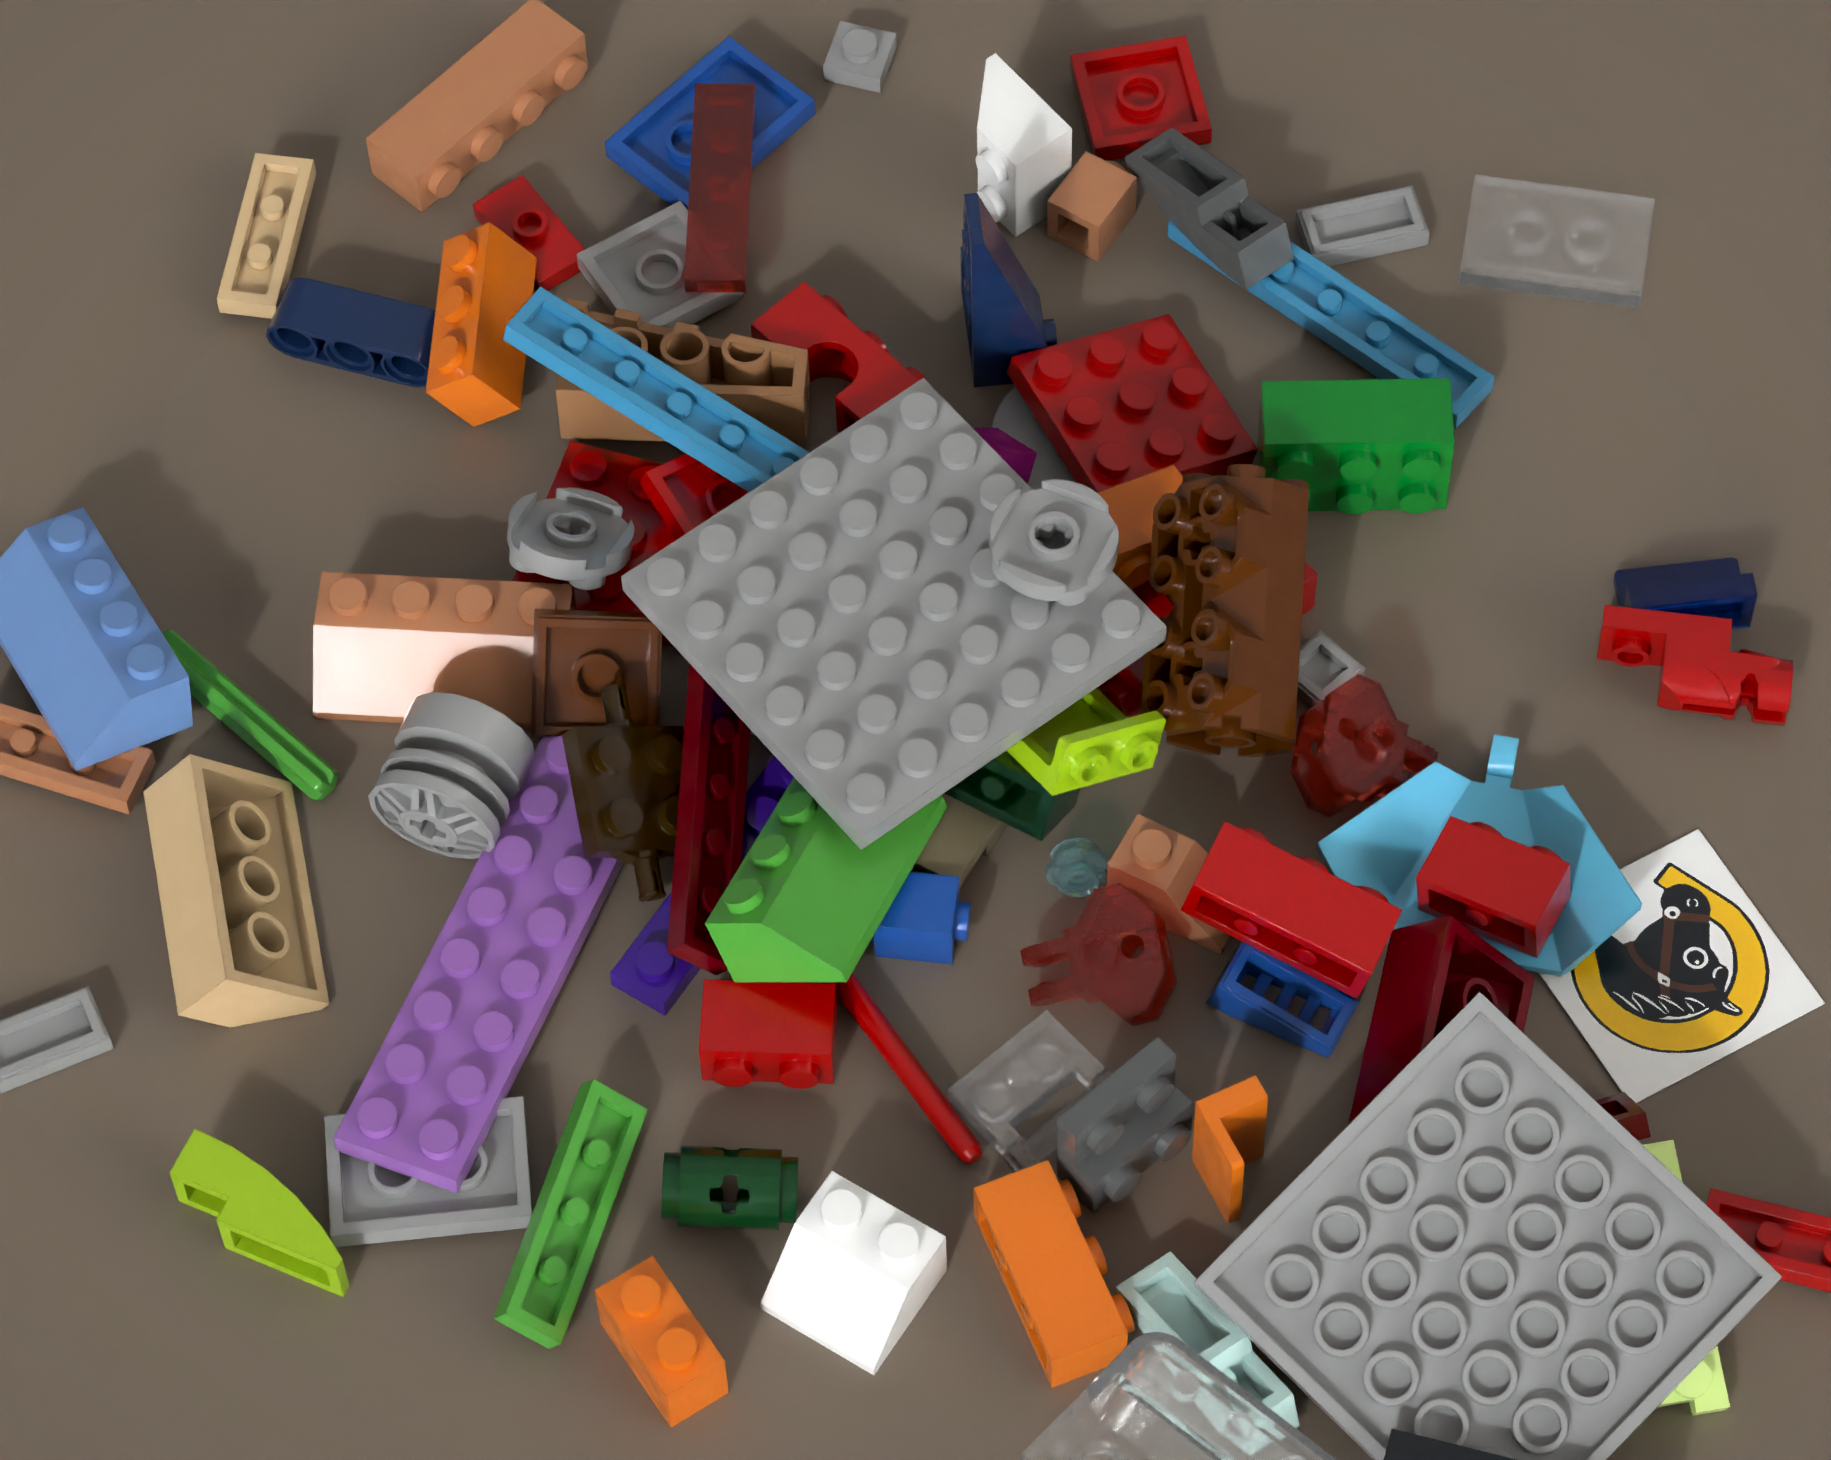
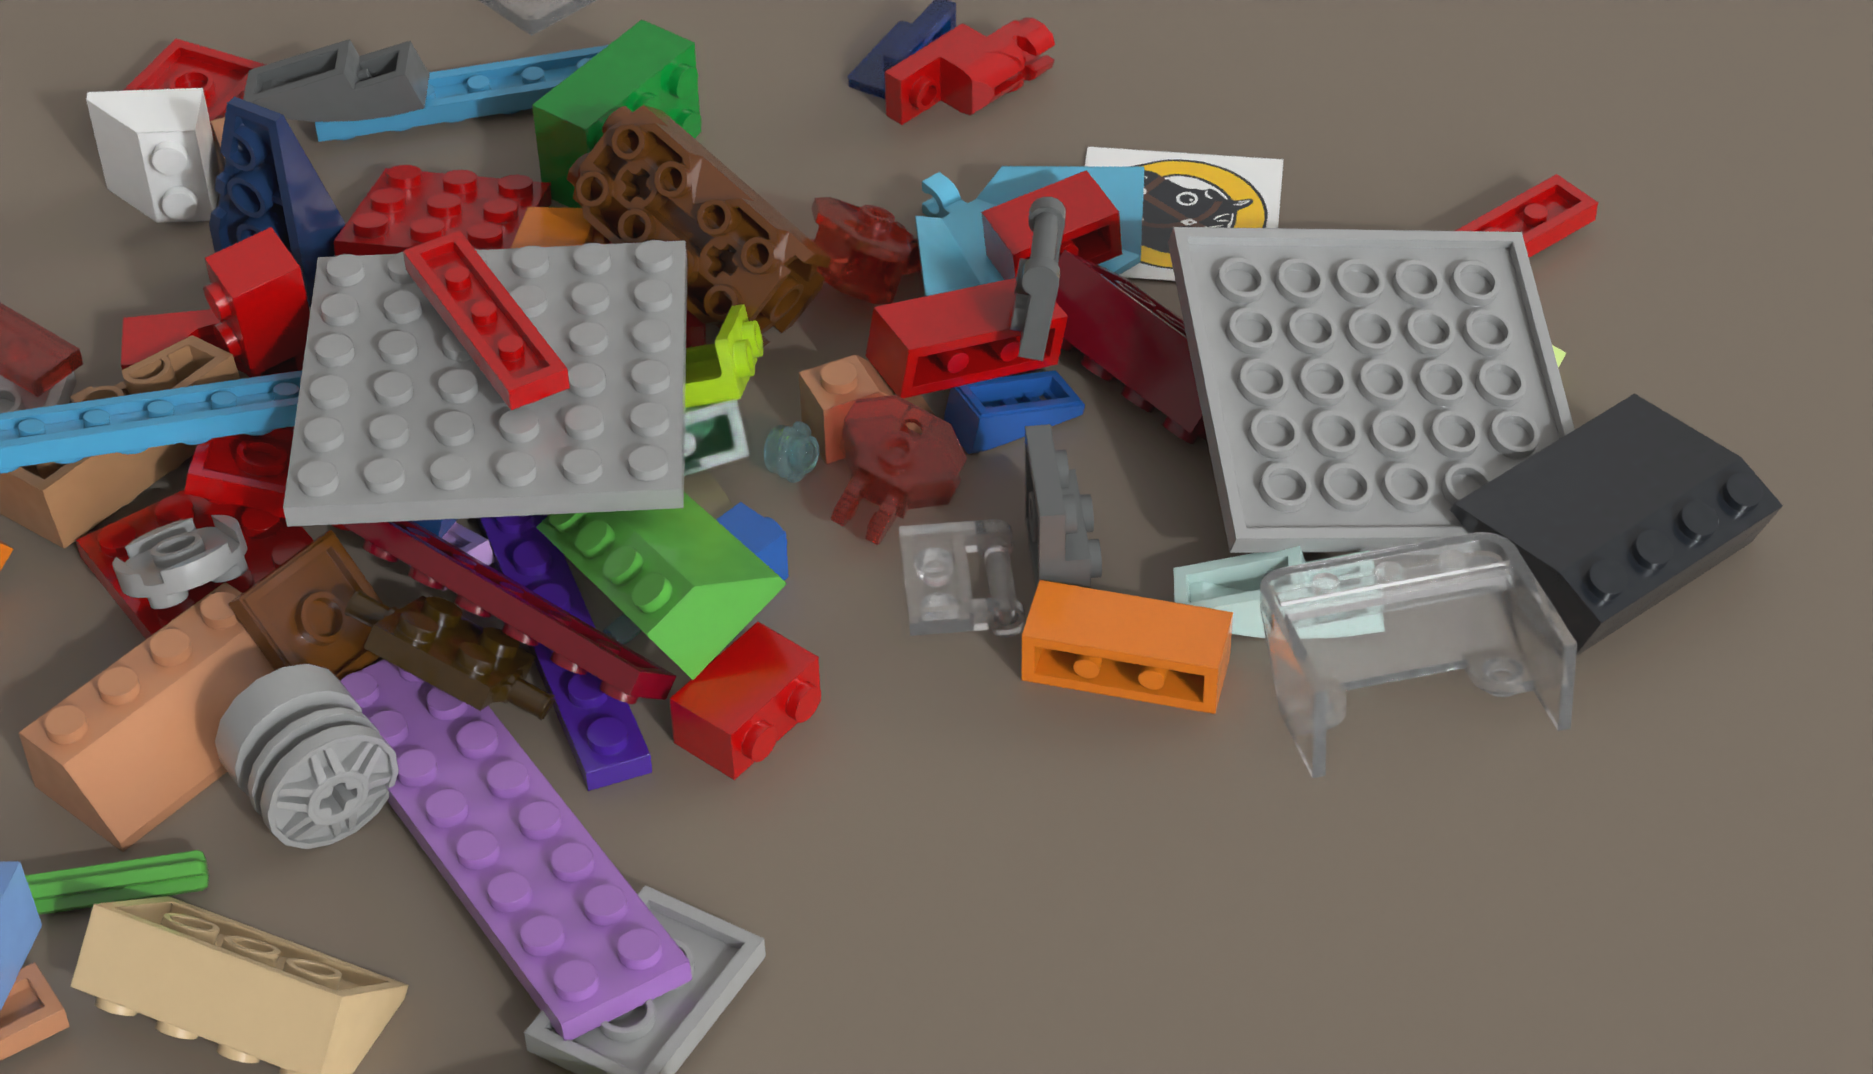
camera: 55 degrees left, 15 degrees down
(570, 1214) = (786, 917): bright green plate -> none
(662, 1341) = (965, 914): orange brick -> none
(694, 1192) = (864, 797): dark green piece -> none
(847, 369) = (259, 301): none -> red brick
(854, 1272) = (1015, 760): white slope -> none
(909, 1070) = (877, 643): red bar -> none
(914, 560) = (486, 320): none -> red plate
(1049, 573) = (584, 251): light grey plate -> none
(1226, 1137) = (1132, 479): orange panel -> none
(1345, 928) = (1038, 278): none -> dark grey plate
(1363, 226) = (445, 38): light grey tile -> none

